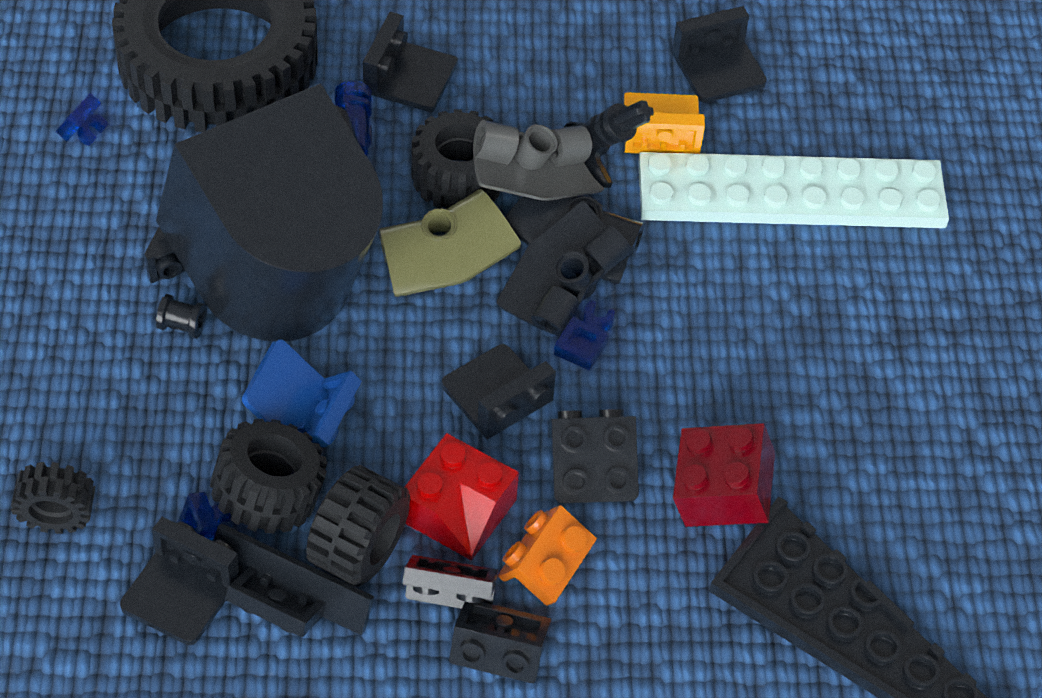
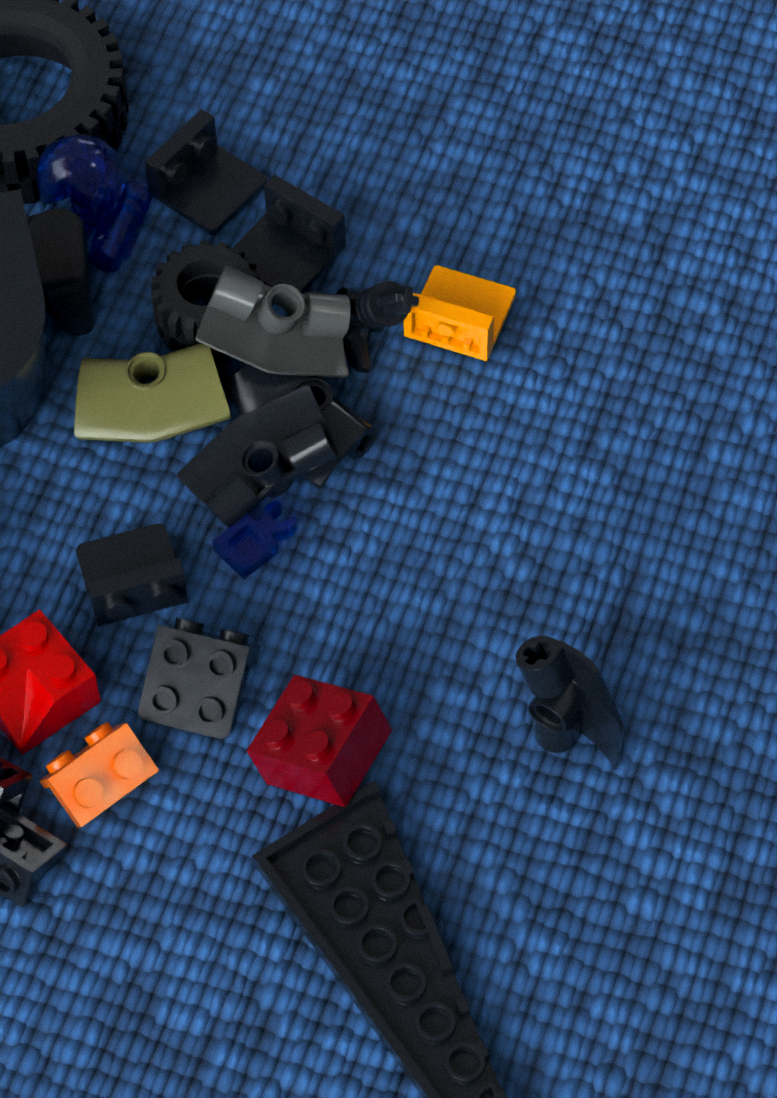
camera: 25 degrees right, 5 degrees up
(312, 68) = (86, 172): none -> clear blue helmet
(505, 89) = (294, 236): none -> black bracket
(715, 55) = (560, 247): black bracket -> none
(792, 190) = (575, 429): light aqua plate -> none
(921, 384) = (569, 698): none -> black panel

